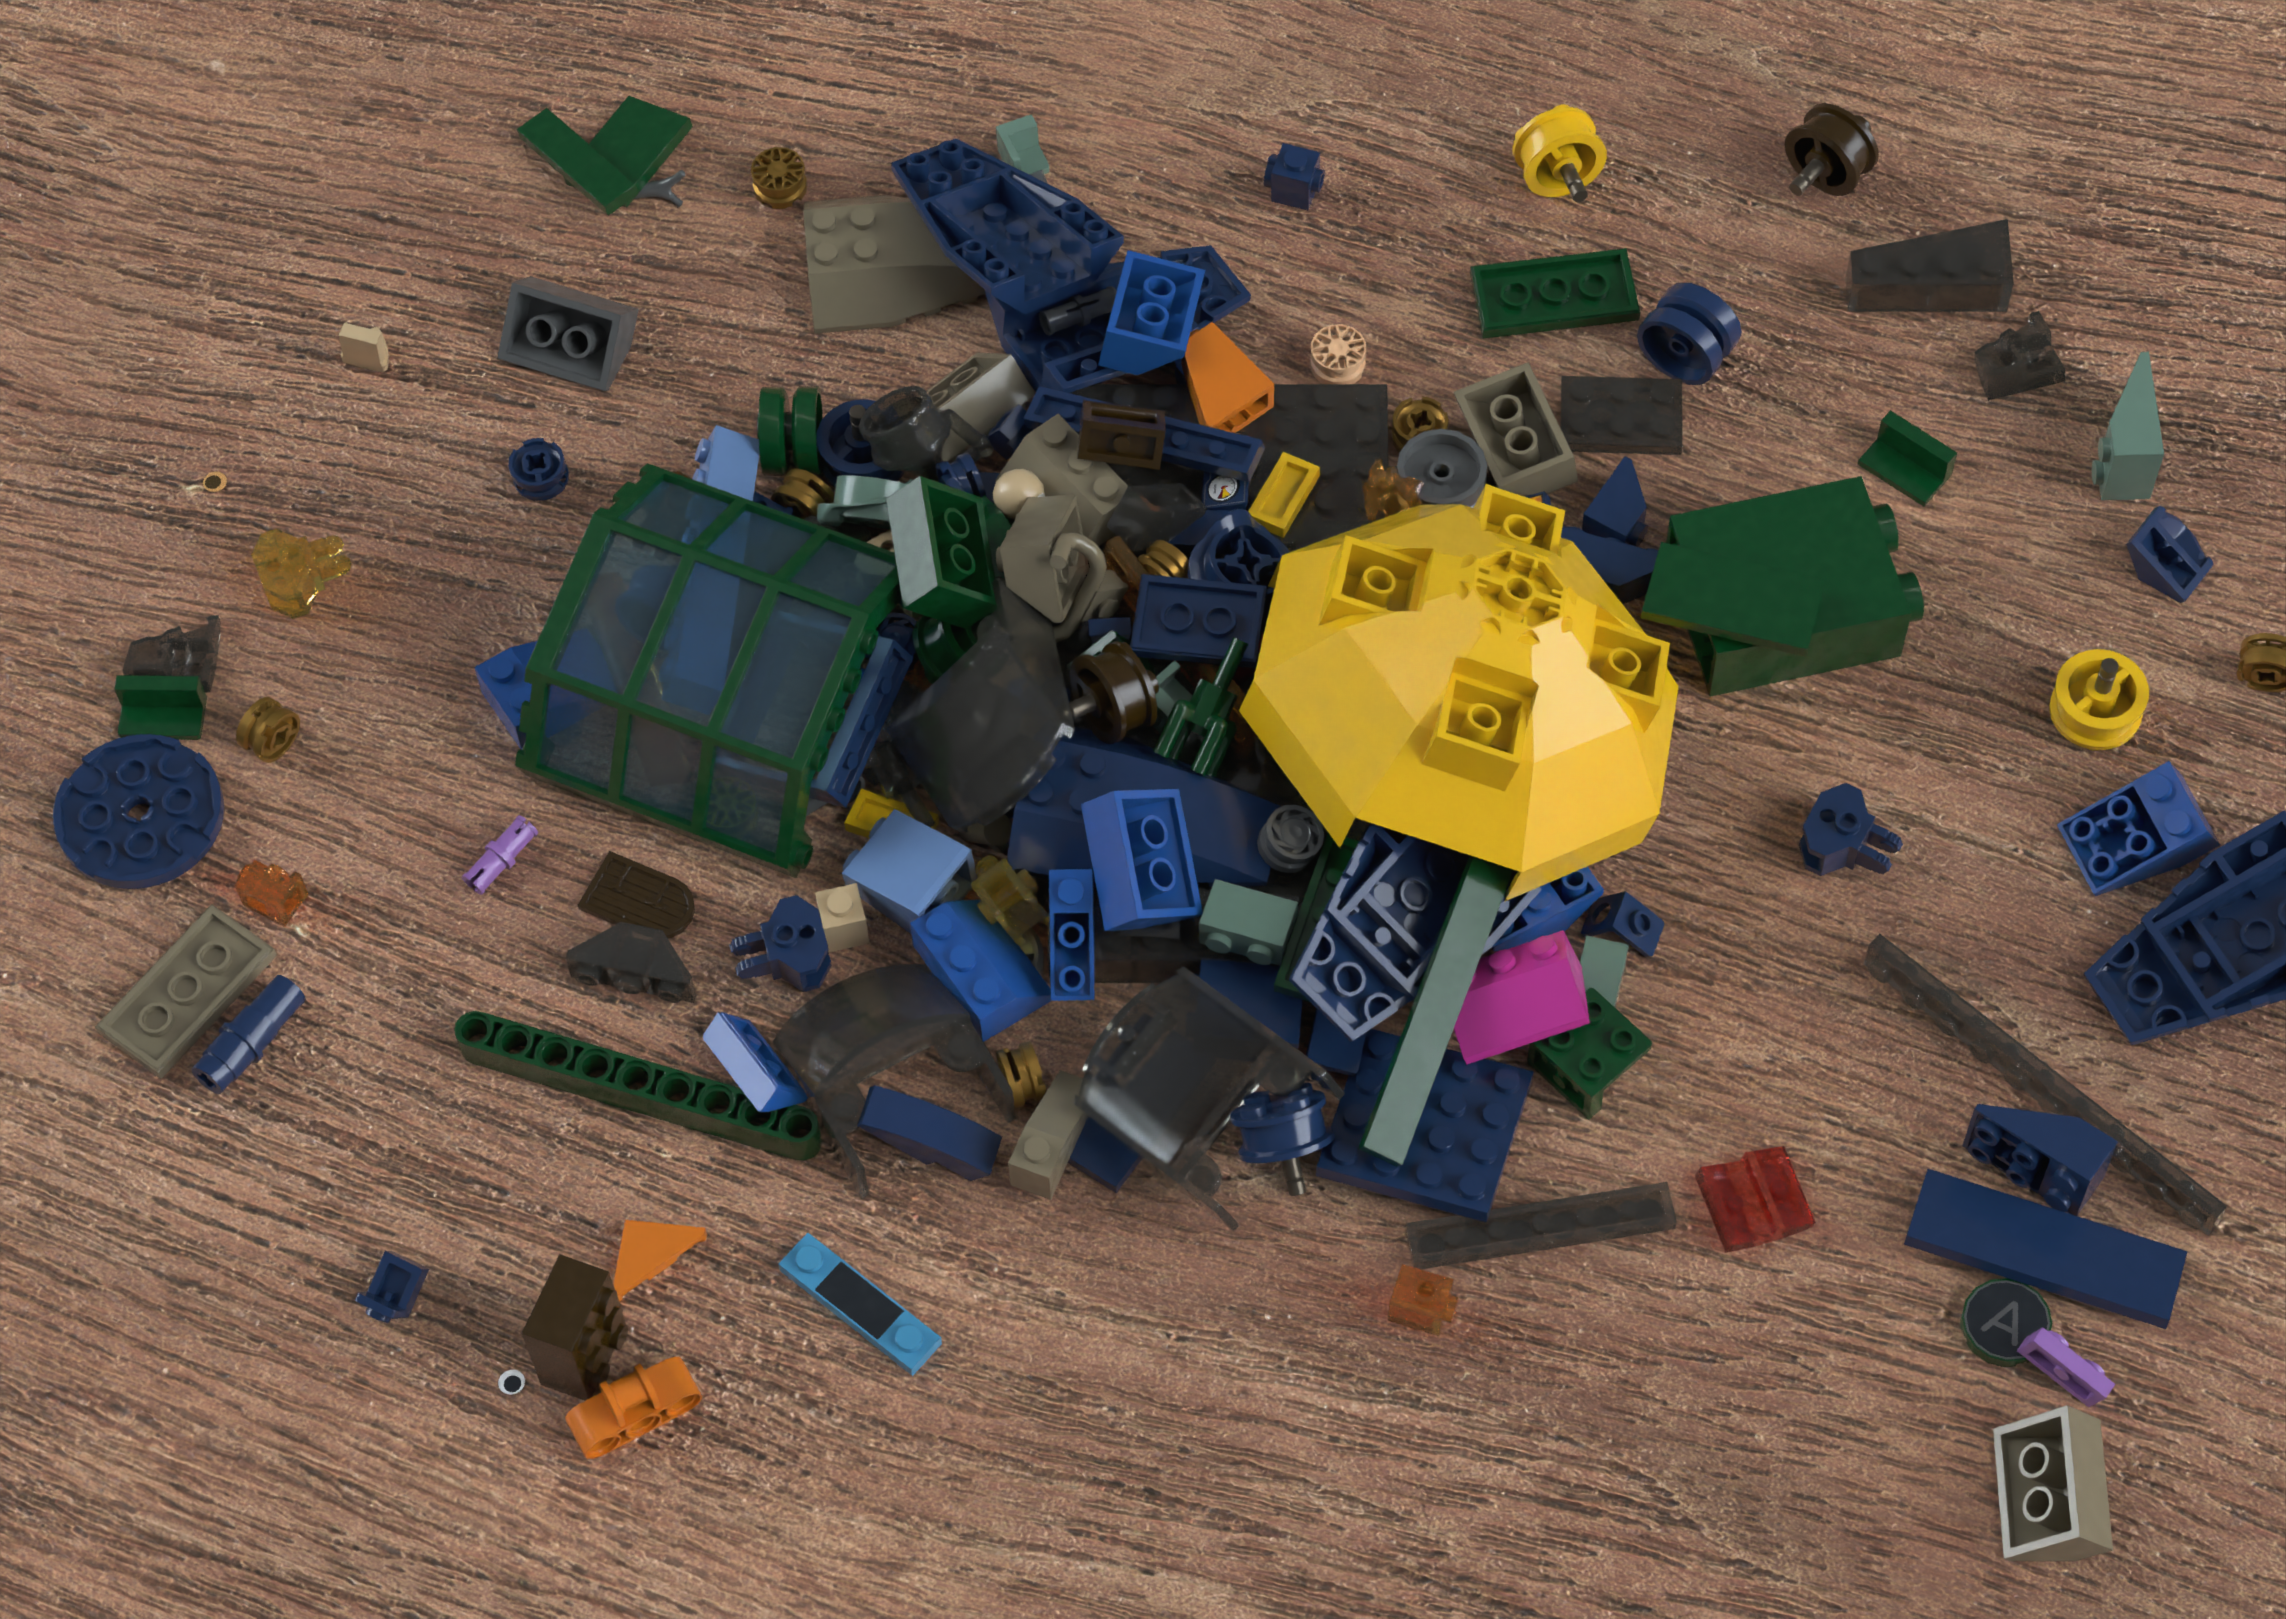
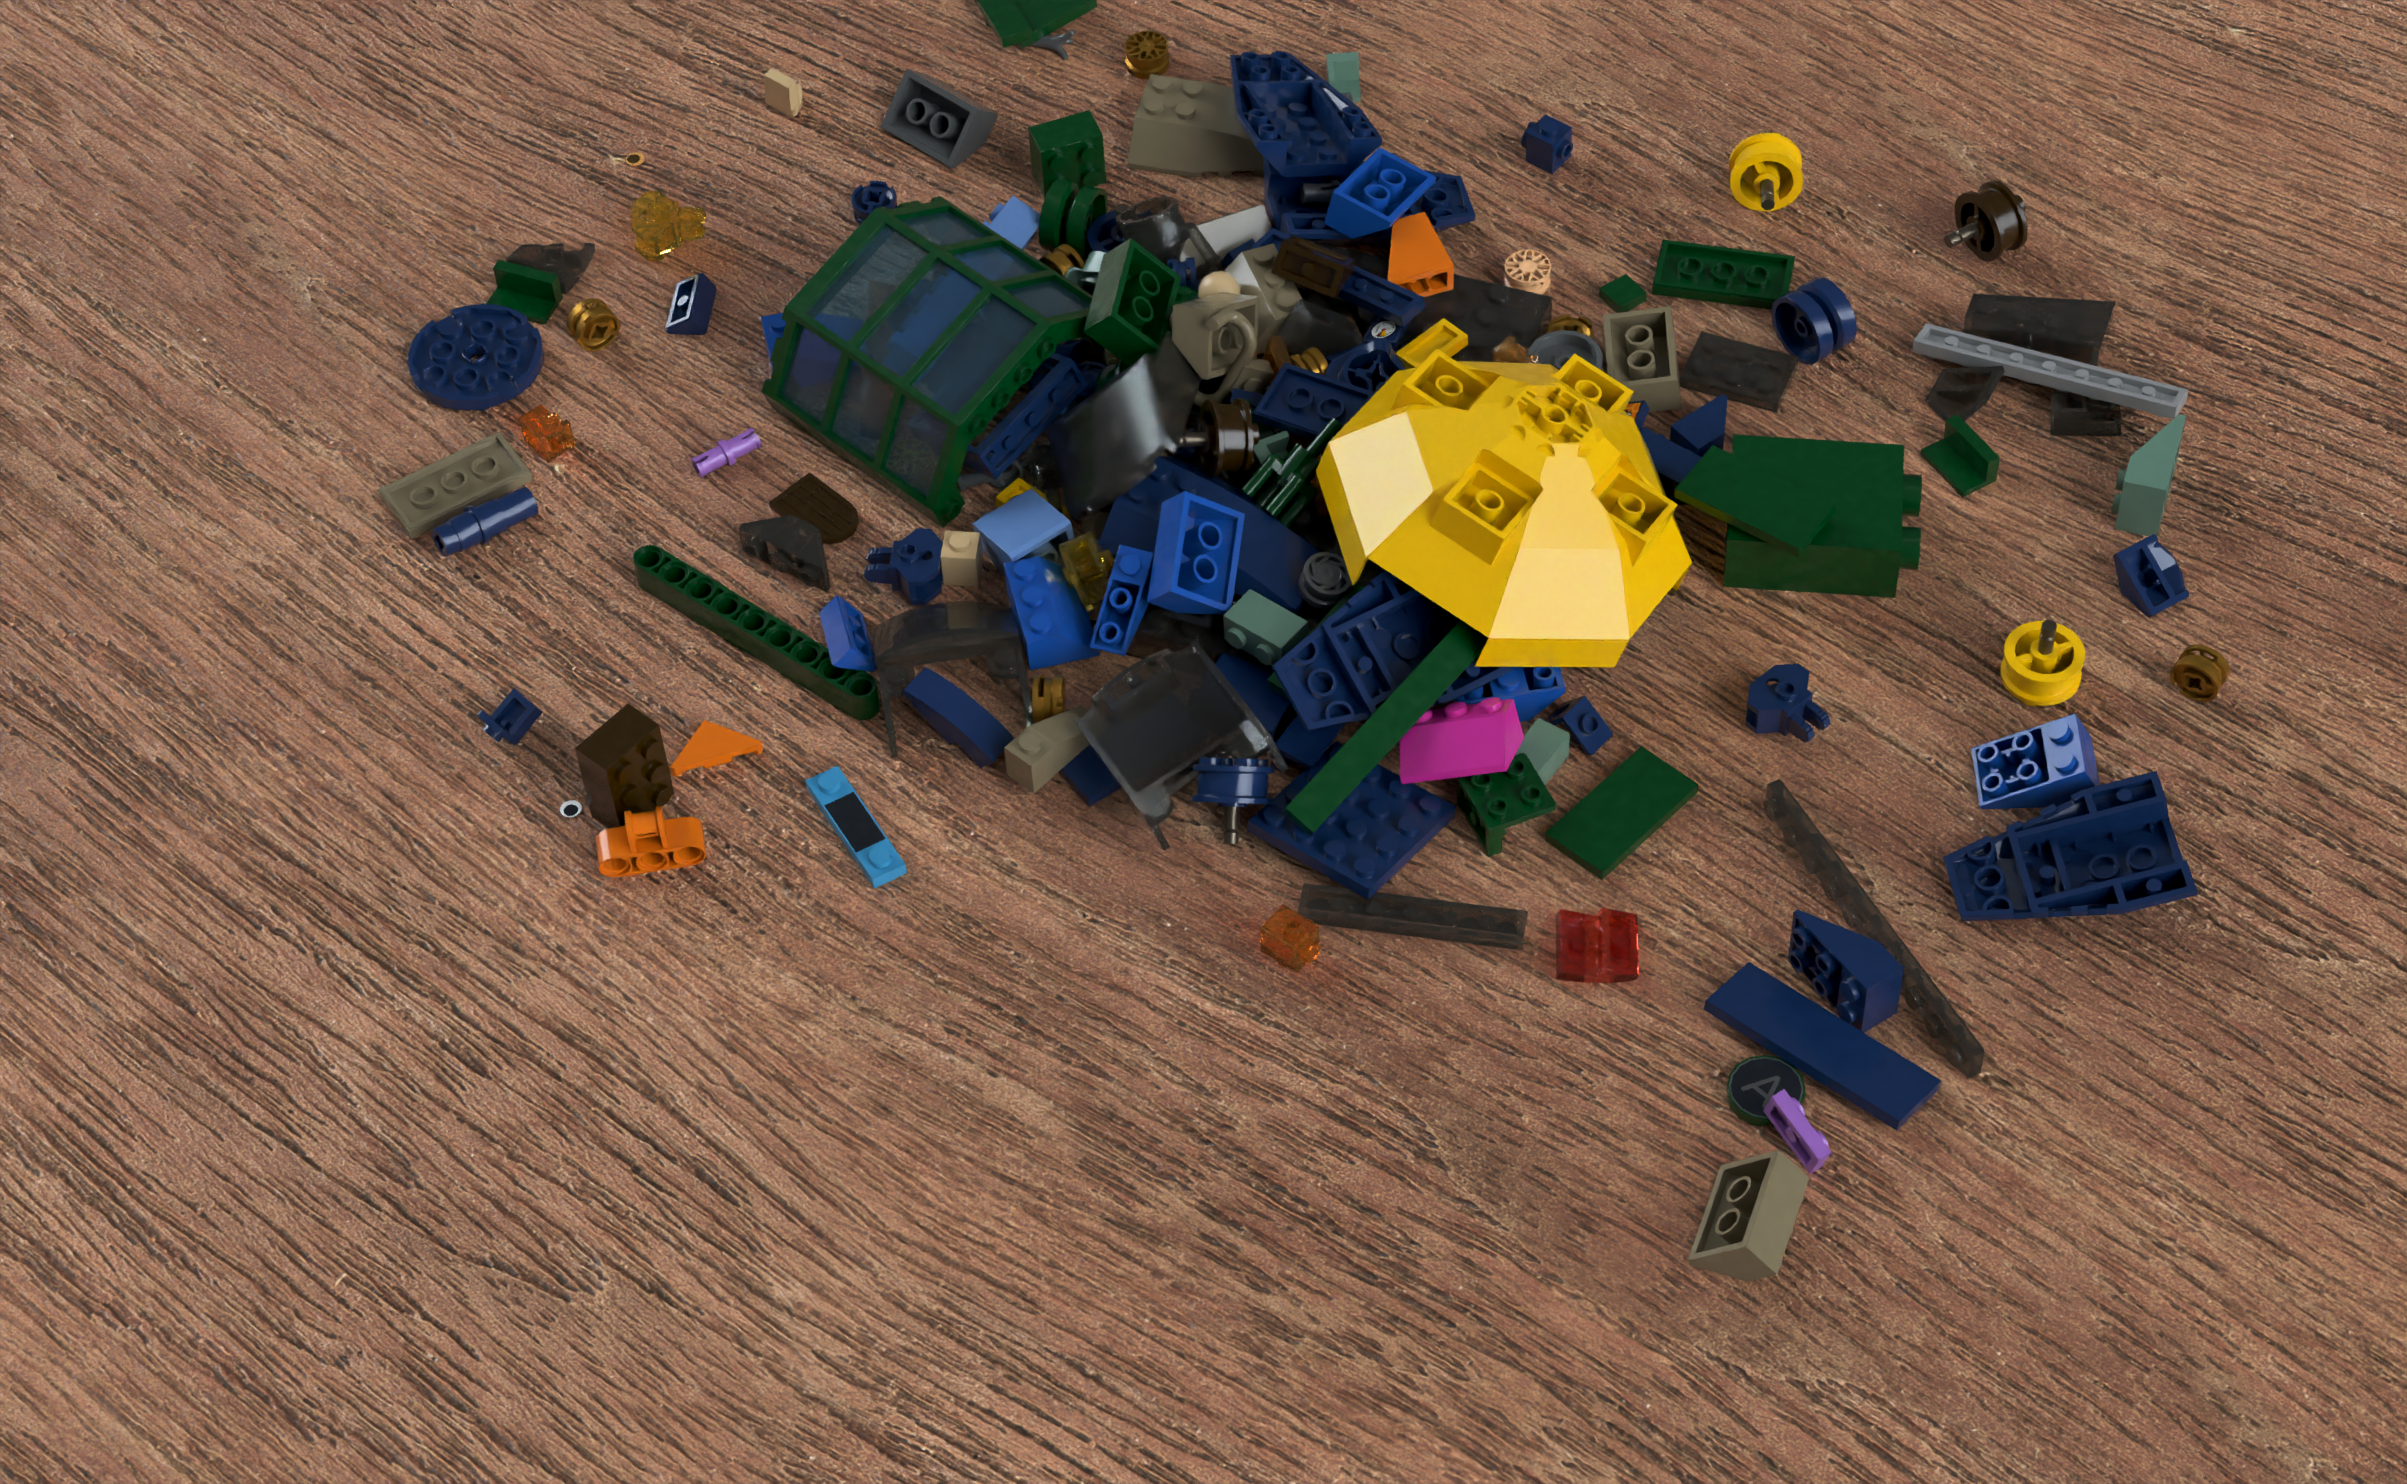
camera: 20 degrees right, 10 degrees down
(371, 666) = (691, 306): none -> dark blue slope
(747, 344) = (1067, 151): none -> dark green brick
(1452, 350) = (1622, 294): none -> dark green tile
(1714, 1021) = (1621, 812): none -> dark green tile
(1879, 375) = (1963, 390): none -> clear smoke slope
(1966, 324) = (2051, 371): none -> light grey plate

